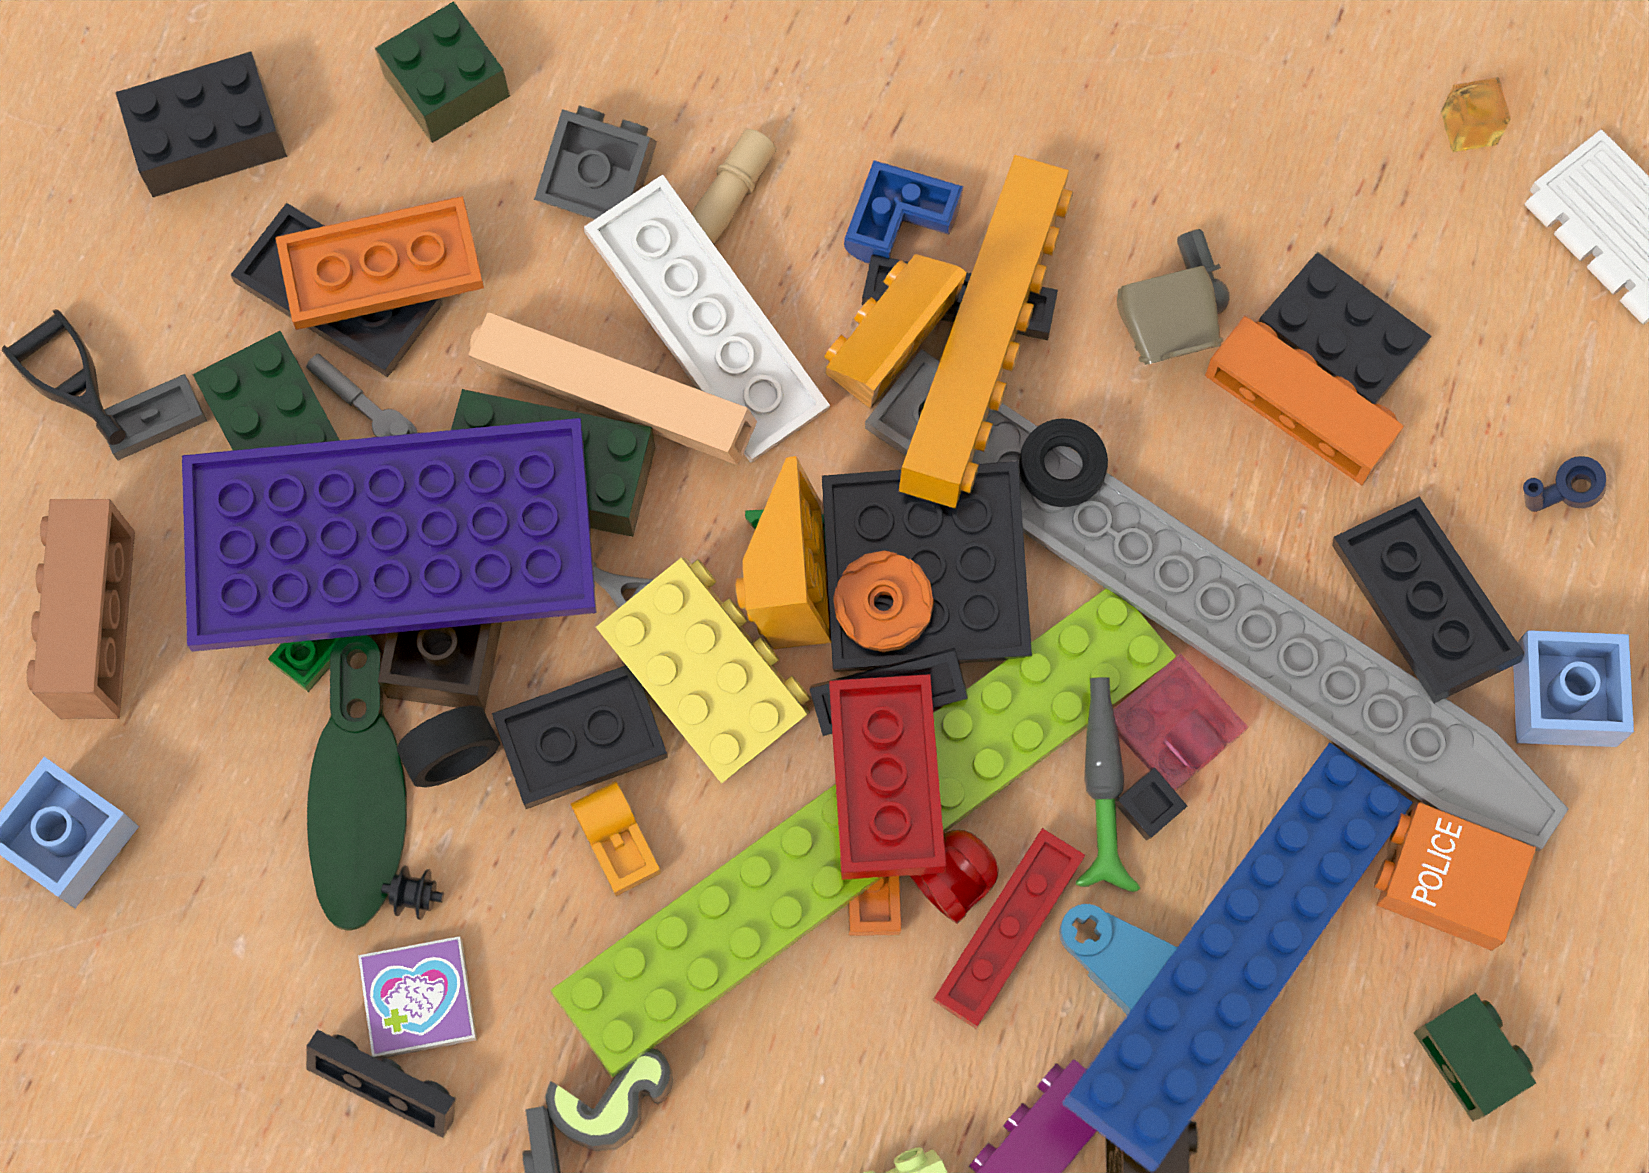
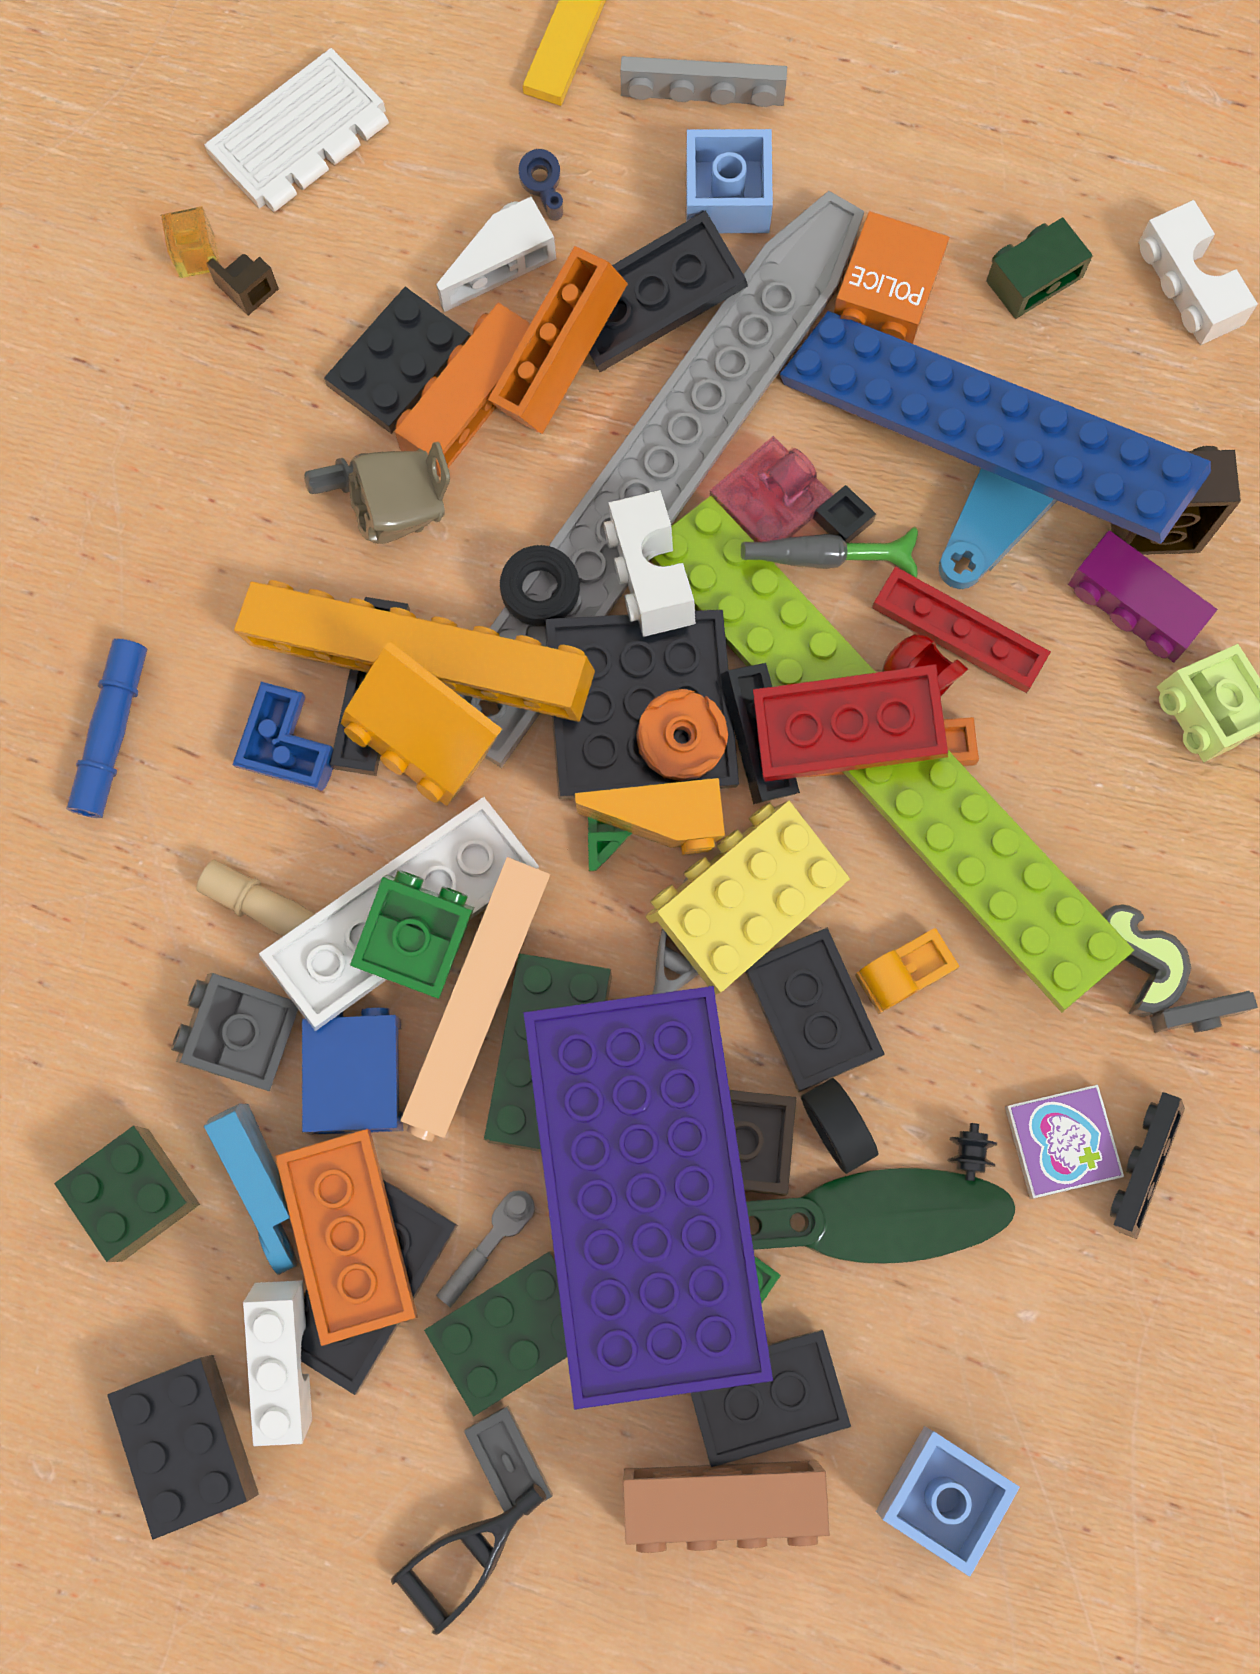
camera: 90 degrees left, 5 degrees up
(179, 690) = (768, 1415): none -> black plate
(231, 203) = (273, 1346): none -> white arch
(474, 167) = (255, 1178): none -> dark azure piece
(543, 272) = (351, 1074): none -> blue panel
(674, 319) = (412, 933): none -> green plate
(920, 46) = (107, 728): none -> blue piece
(1118, 561) = (659, 594): none -> white arch
(1354, 485) = (558, 340): none -> orange brick
(1432, 171) = (245, 281): none -> dark brown panel
(1477, 437) = (503, 250): none -> white slope

